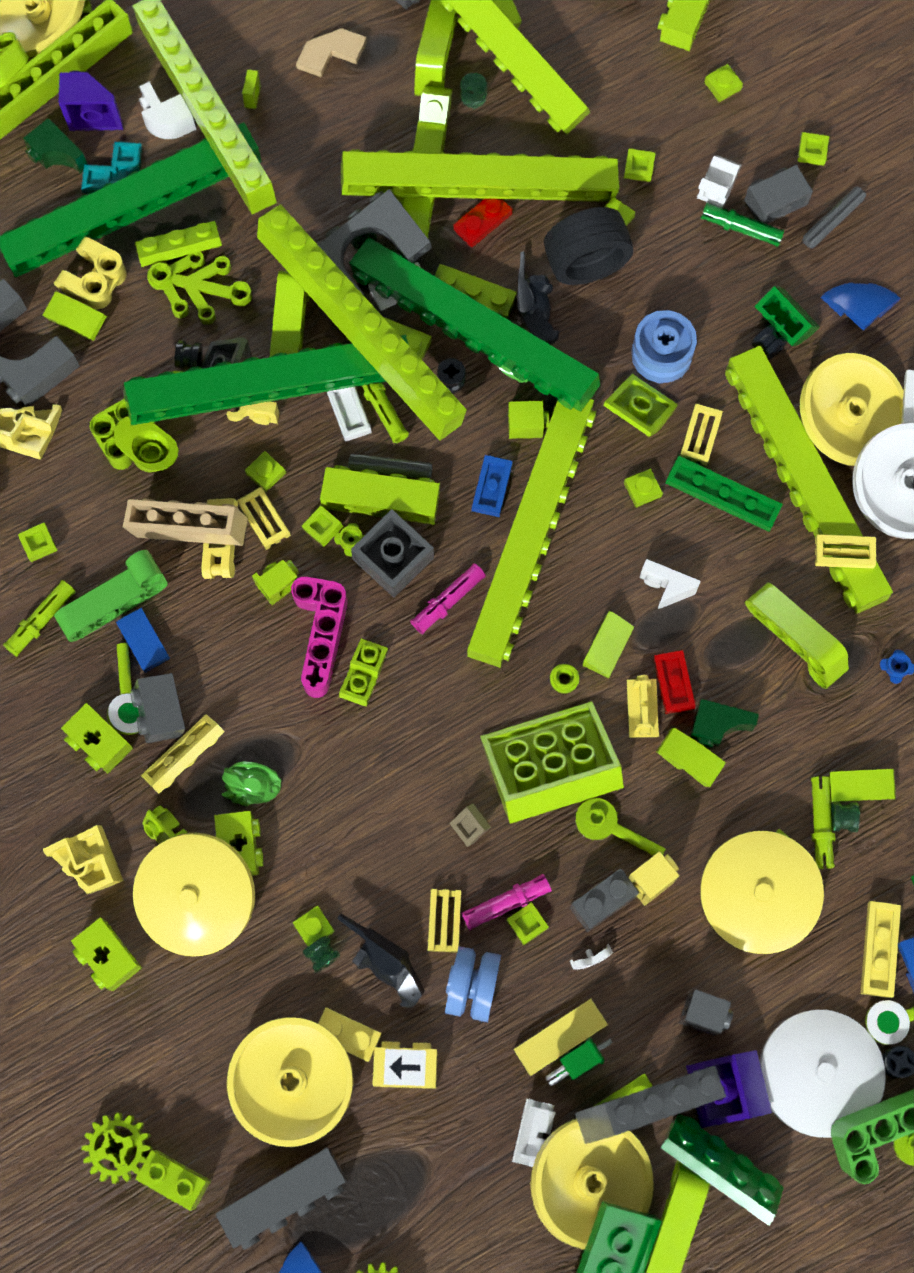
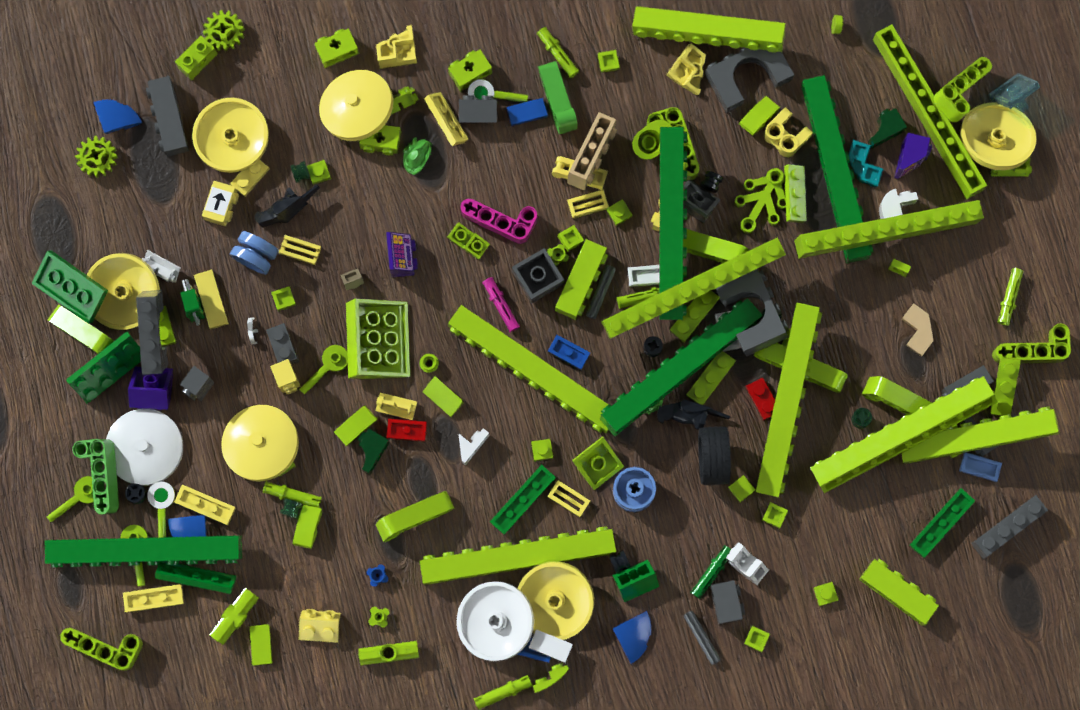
camera: 105 degrees right, 5 degrees up
(276, 580) = (541, 201): lime brick -> none
(414, 760) = (401, 254): none -> dark purple slope
(435, 104) = (852, 386): brick -> none
(499, 905) = (301, 297): dark pink pin -> none
(527, 419) = (608, 386): lime brick -> none
(845, 562) = (452, 576): light yellow tile -> none

